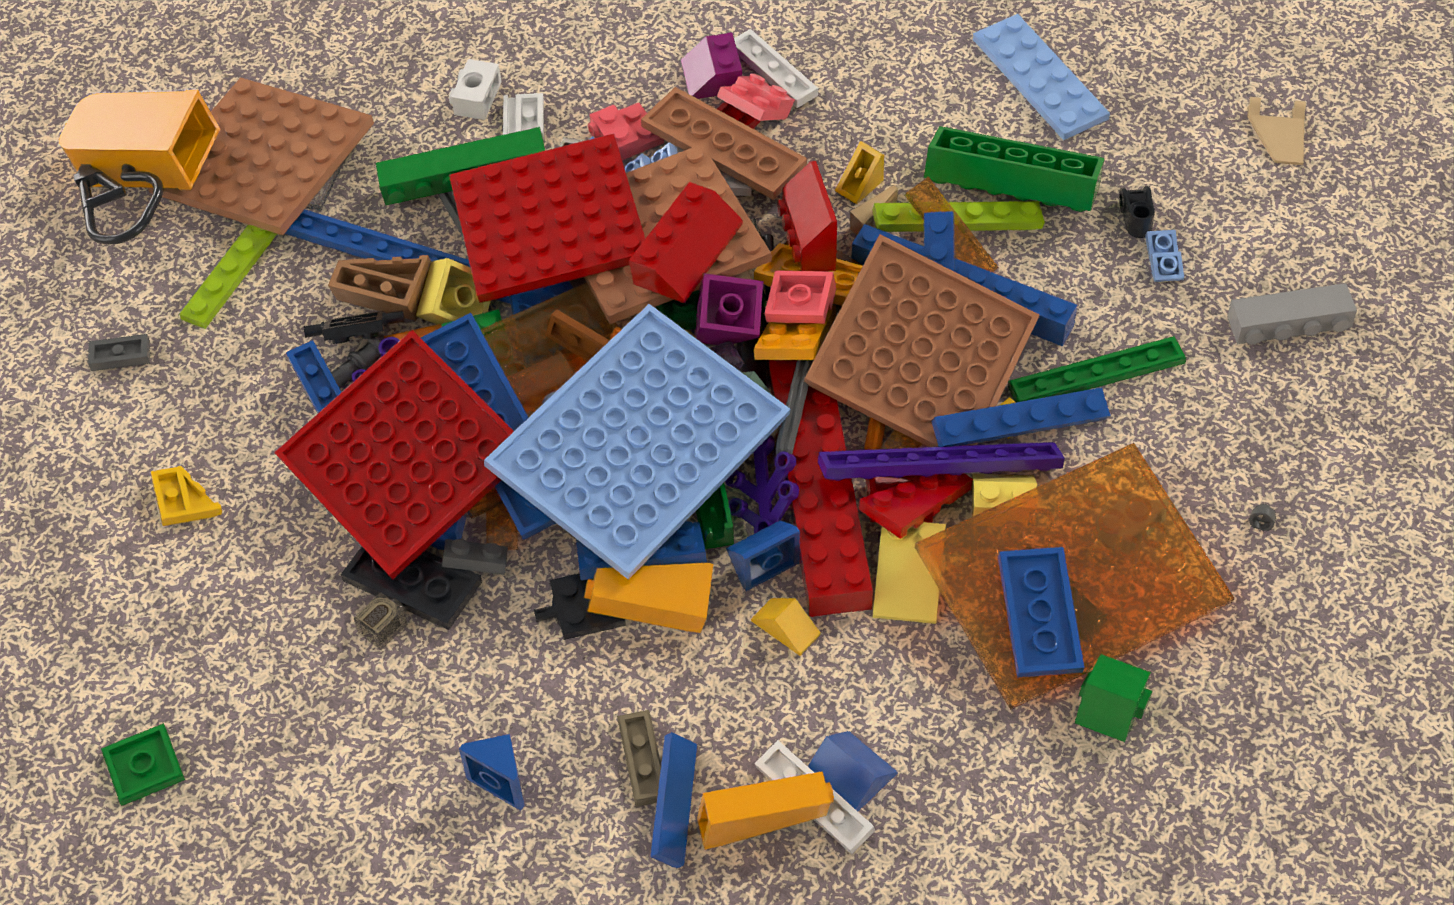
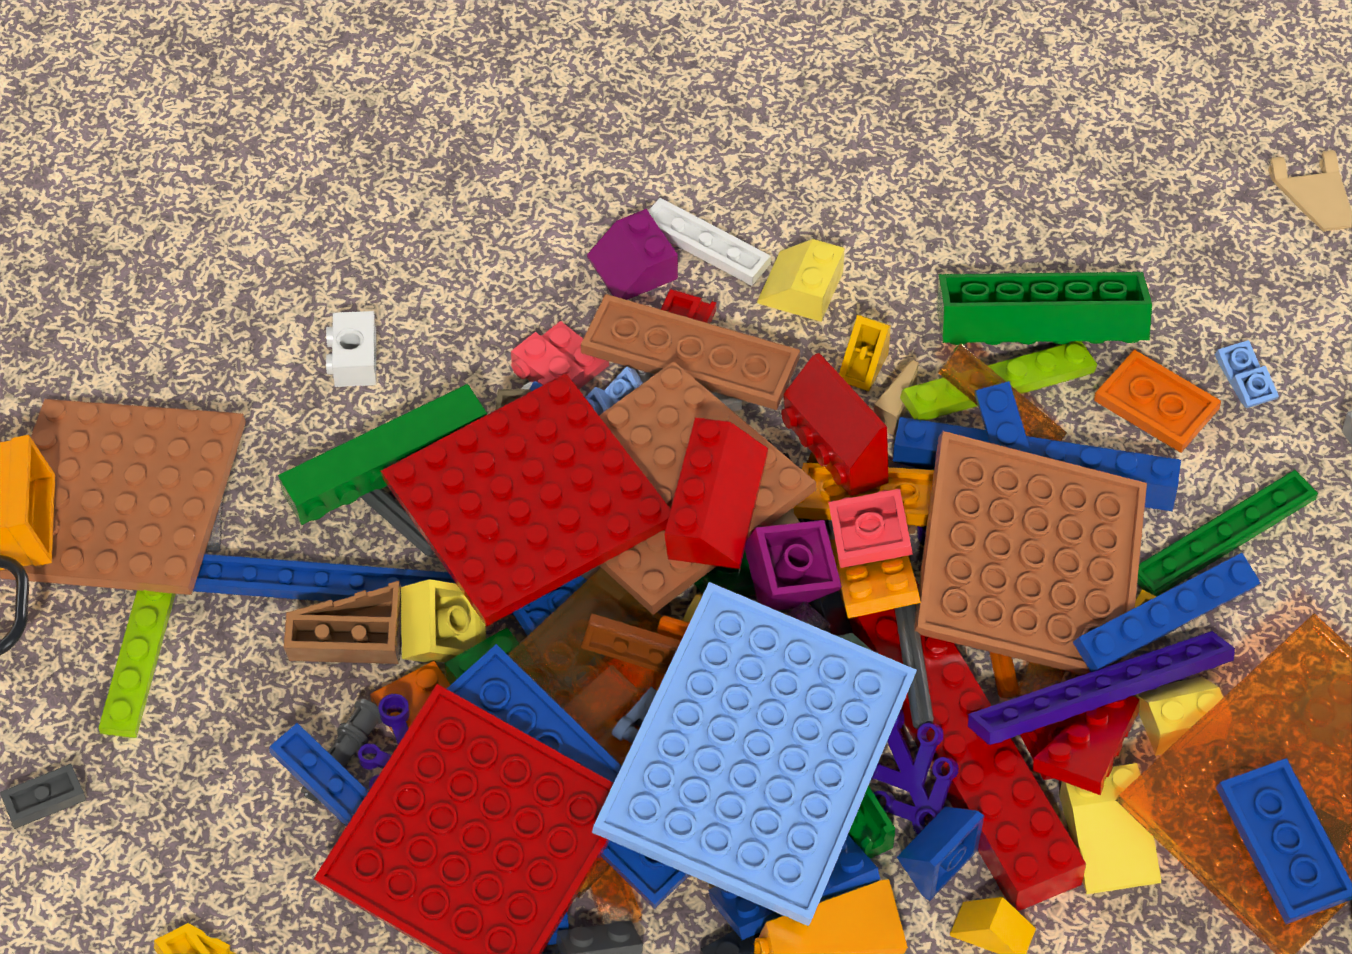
camera: 20 degrees left, 0 degrees up
(366, 325) = (325, 693): black plate -> none
(523, 113) = (425, 370): white plate -> none
(757, 98) = (706, 285): coral plate -> none
(839, 111) = (804, 279): none -> light yellow slope
(1041, 76) = (1021, 183): light blue plate -> none
(1082, 260) = (1157, 401): none -> orange plate
(1137, 210) = (1196, 326): black piece -> none

